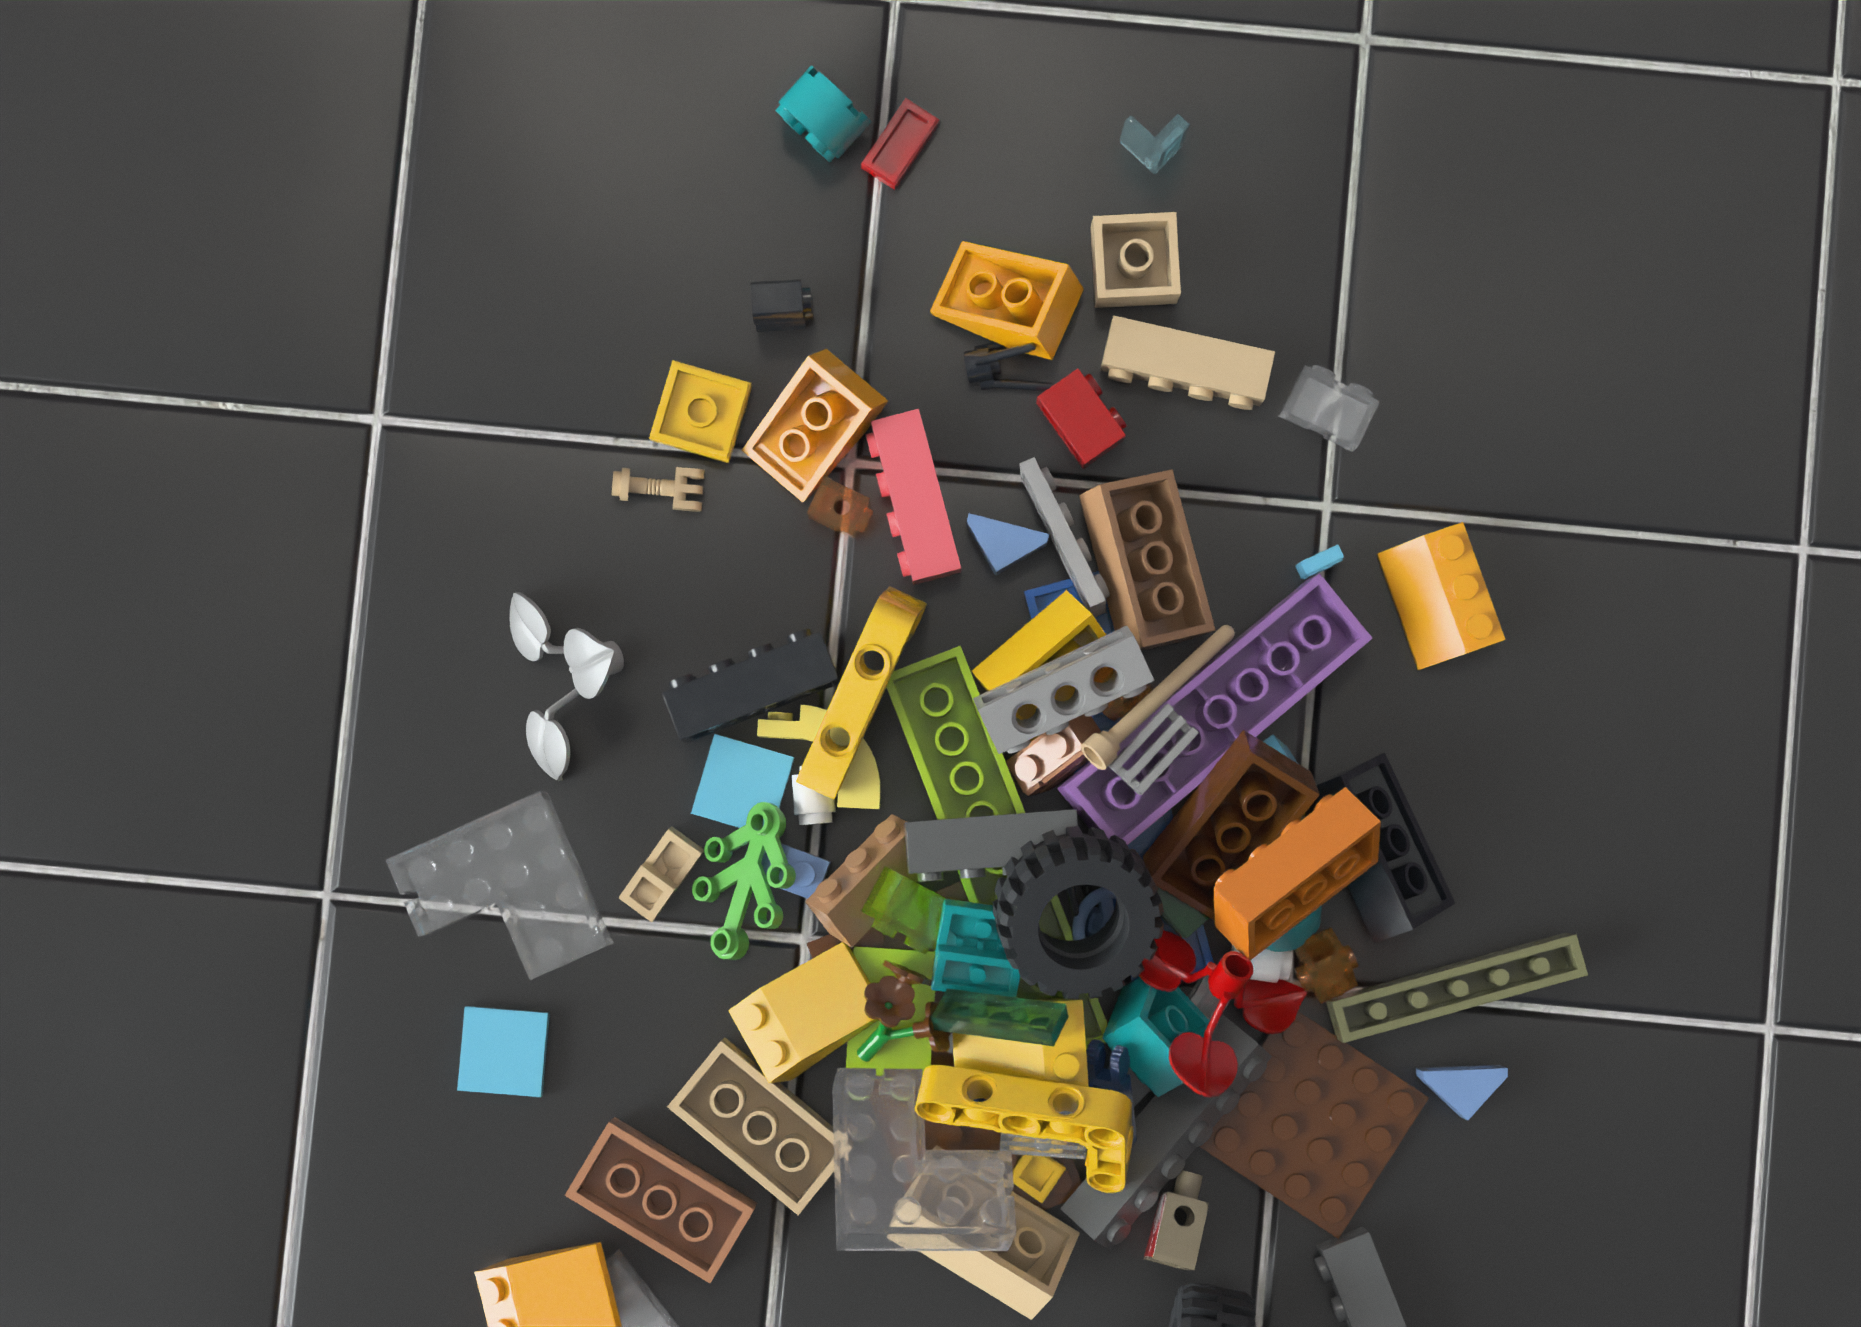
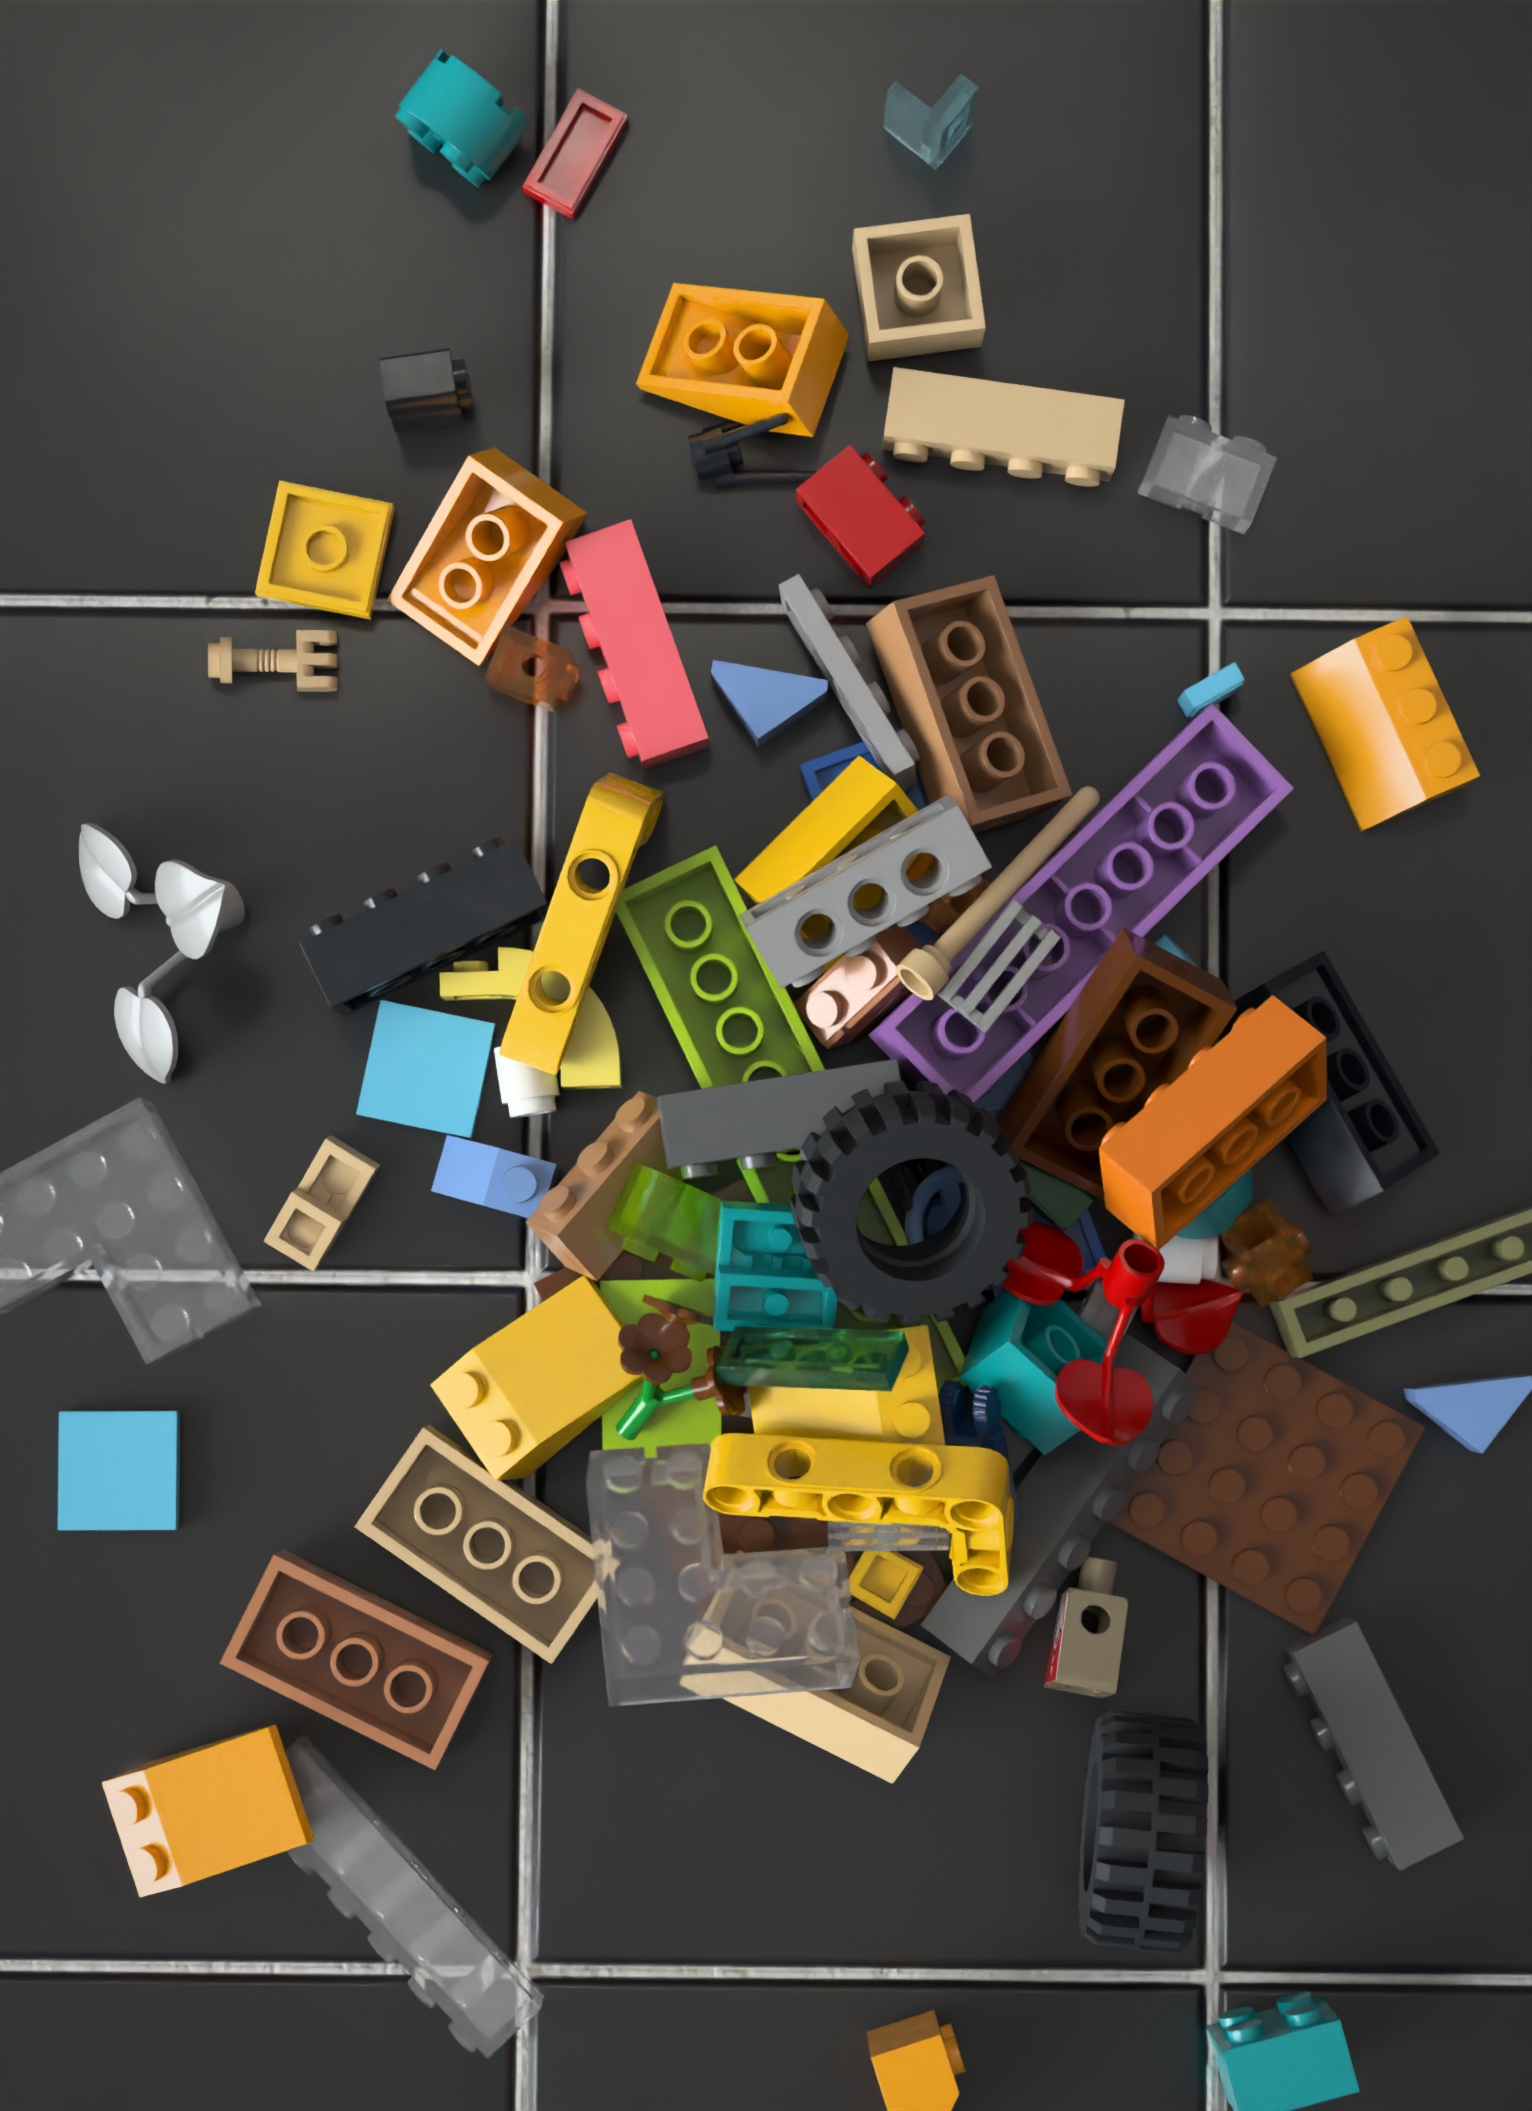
camera: 10 degrees left, 0 degrees up
(749, 877) = (444, 1195): bright green plant -> none

